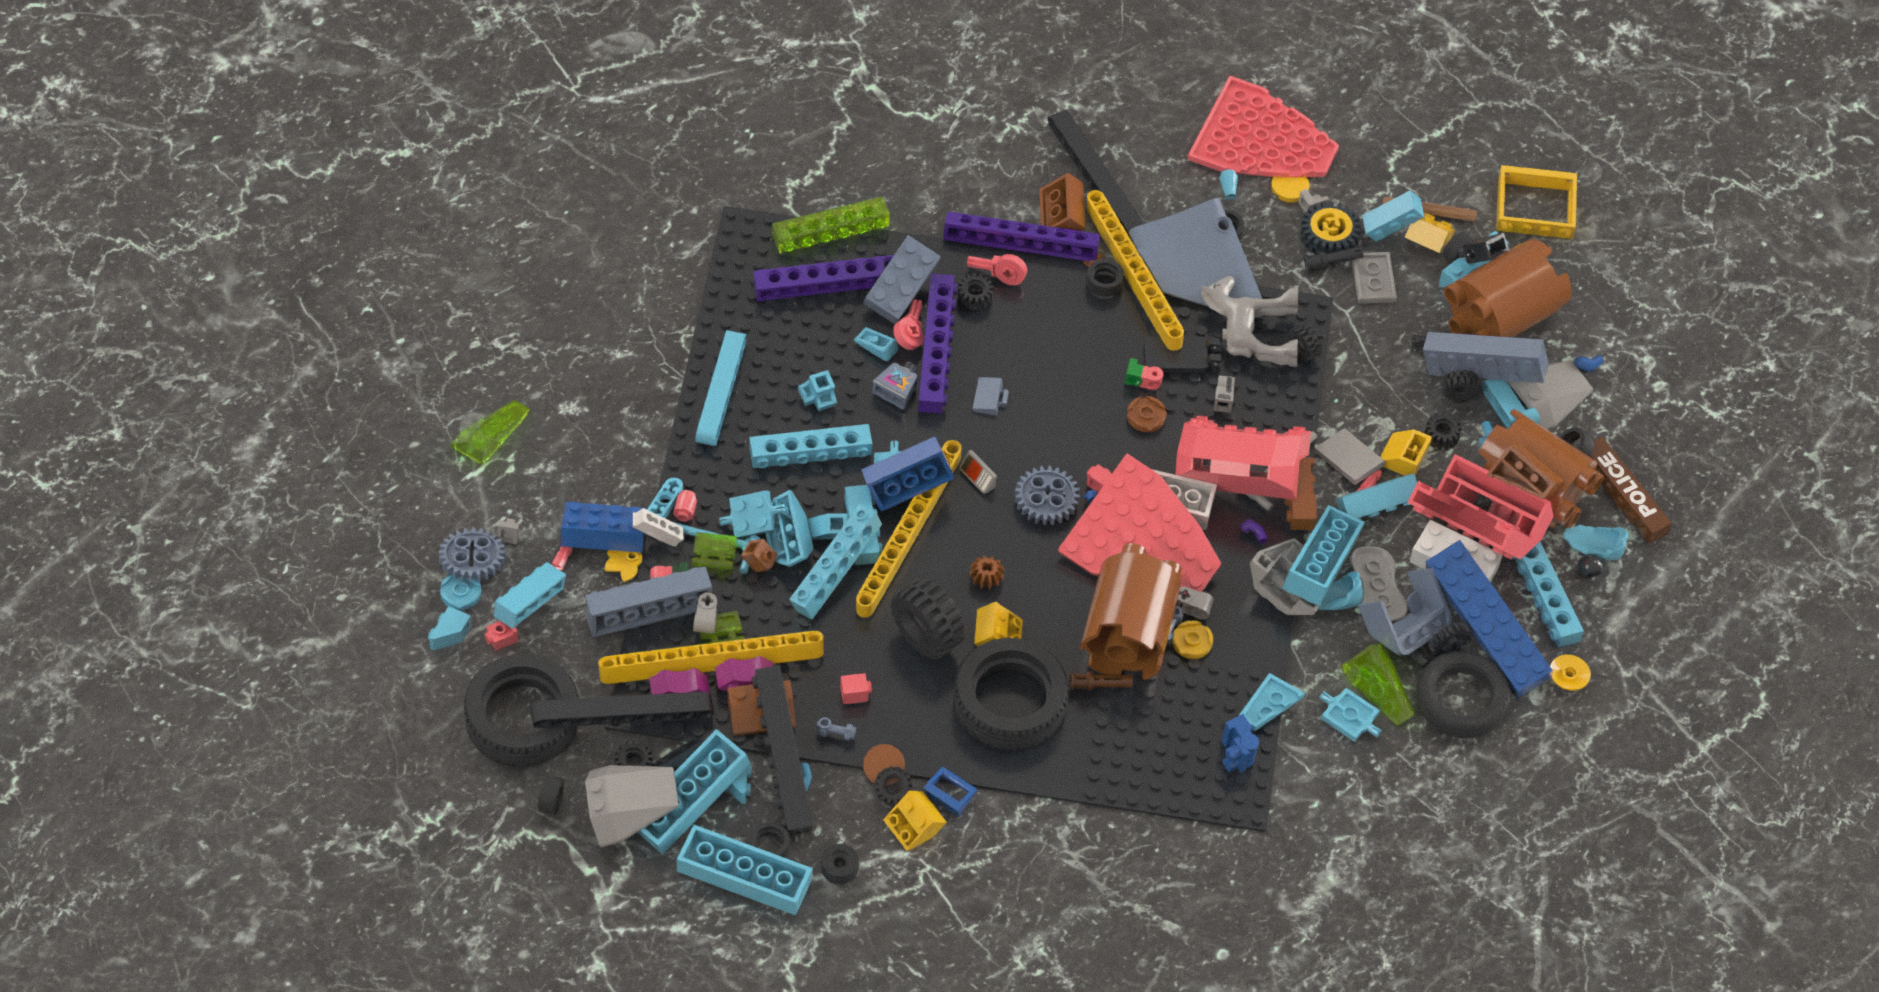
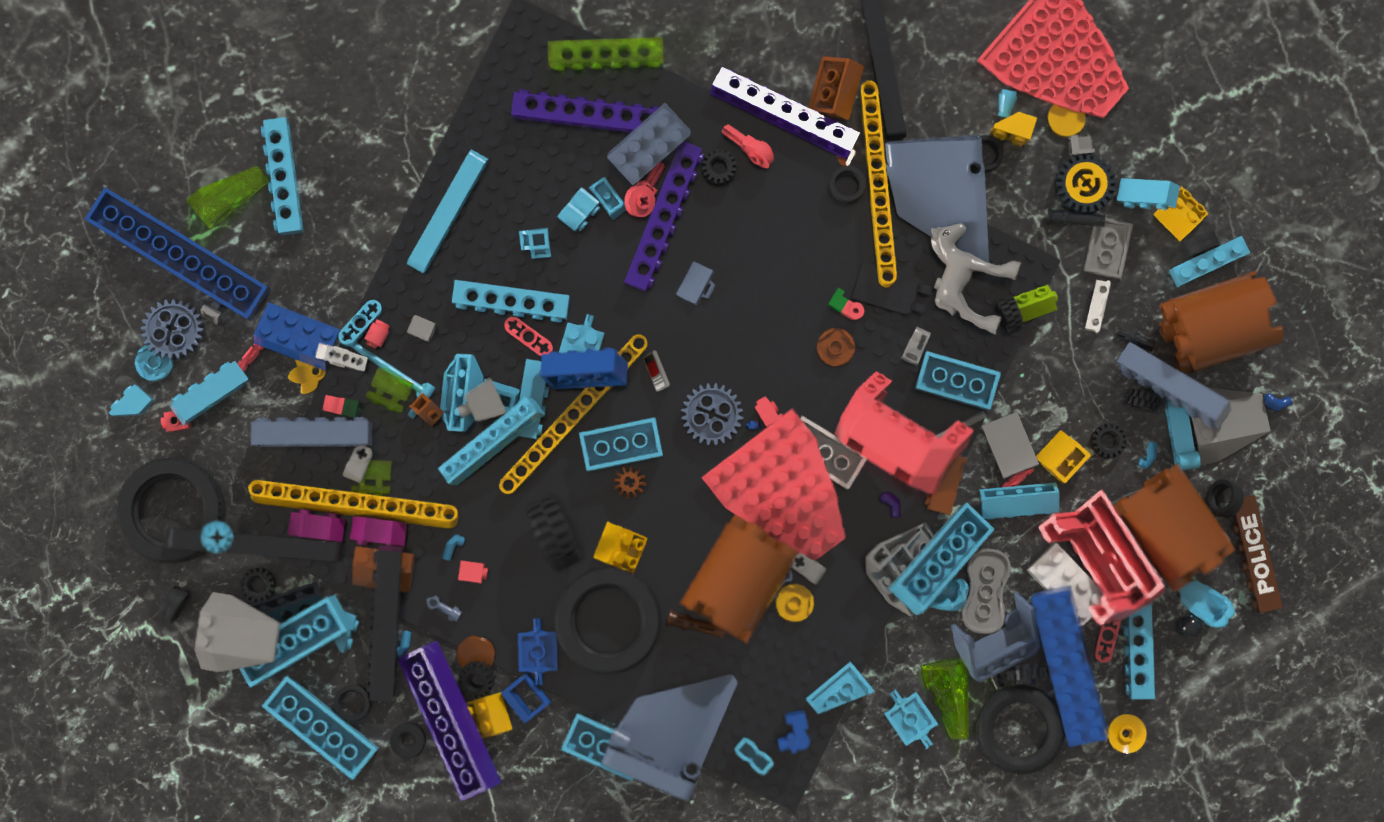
camera: 20 degrees right, 30 degrees up
(458, 486) = (177, 254): none -> blue brick
(544, 400) = (281, 127): none -> medium azure brick
(578, 706) = (209, 530): none -> medium azure gear
(728, 488) = (422, 328): none -> light grey panel
(752, 514) = (433, 364): medium azure plate -> none
(817, 523) = (482, 402): none -> light grey torso
(823, 677) = (451, 544): none -> dark azure arm
(843, 482) = (514, 332): none -> coral beam
(851, 357) = (579, 210): none -> medium azure brick
(879, 826) = (449, 720): none -> dark purple brick
(896, 384) = (612, 252): sand blue torso -> none
(948, 744) = (537, 651): none -> blue plate
(966, 538) = (621, 444): none -> medium azure brick
(1049, 813) = (589, 742): none -> medium azure brick
(1113, 781) = (669, 733): none -> sand blue panel
(1209, 779) = (749, 752): none -> medium azure brick
(1246, 196) = (1015, 128): none -> yellow slope
(1276, 407) = (957, 381): none -> medium azure brick
(1329, 326) = (1036, 302): none -> lime brick
(1384, 324) = (1098, 306): none -> white piece
(1444, 211) = (1191, 183): medium nougat axle -> none
(1479, 251) = (1218, 267): black torso -> none
(1517, 588) = (1098, 647): none -> coral beam
(1525, 471) = (1154, 548): dark orange wedge -> none
(1541, 179) = (1312, 179): yellow window -> none

